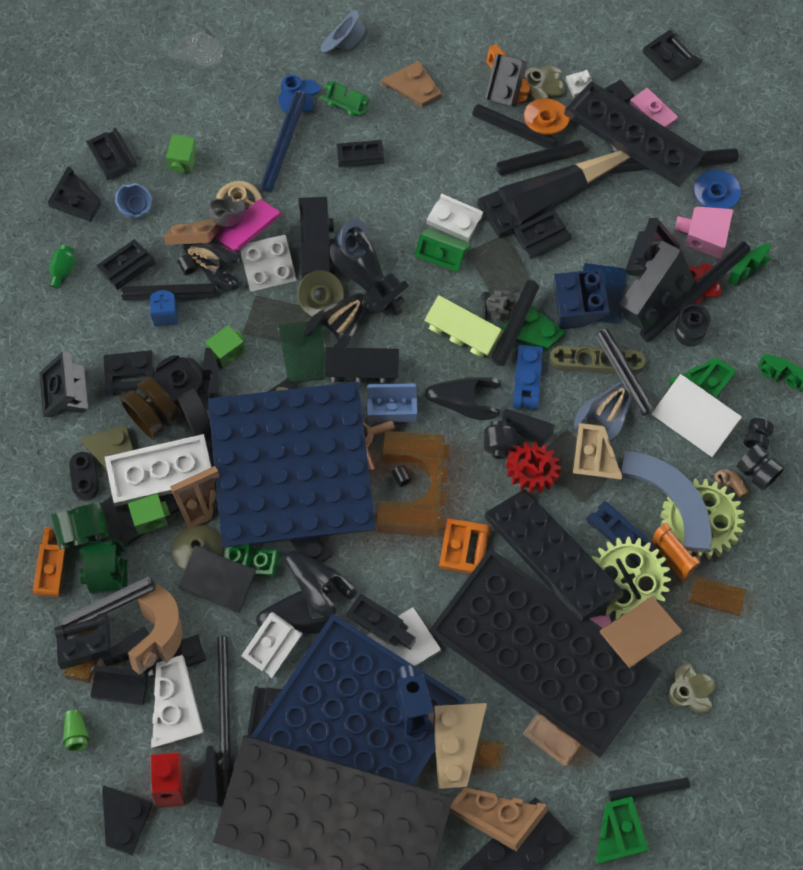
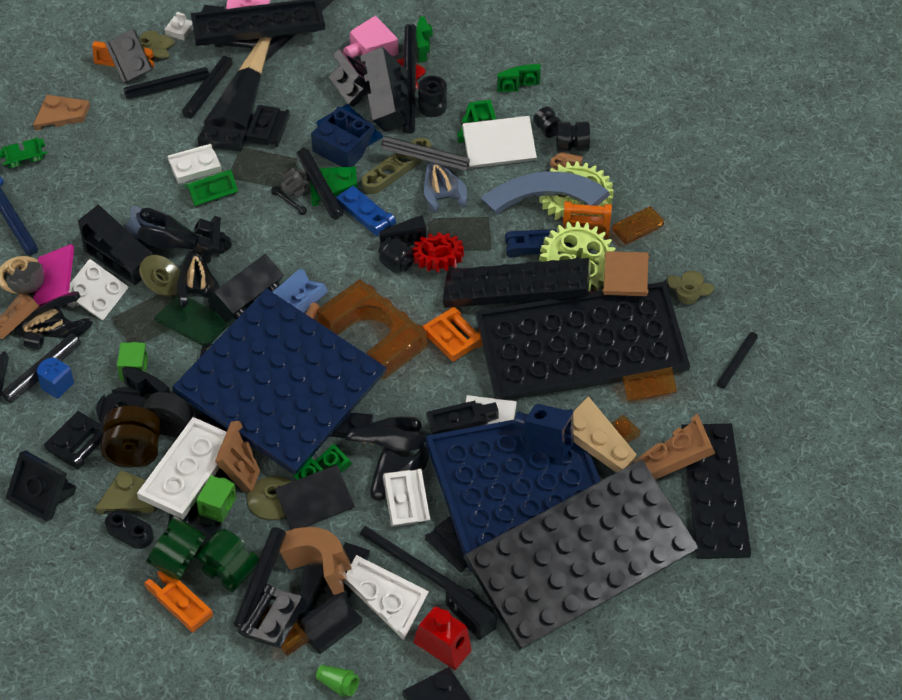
camera: 50 degrees left, 15 degrees down
(360, 153) = (76, 177): black plate -> none
(401, 475) = (358, 331): black piece -> none
(459, 396) = (338, 255): black animal -> none
(463, 327) = (287, 213): yellowish green brick -> none
(546, 116) = (182, 59): orange dish -> none
(594, 453) = (466, 210): tan wing -> none
(620, 832) = (753, 395): green wing -> none
(717, 182) = (348, 16): blue dish -> none

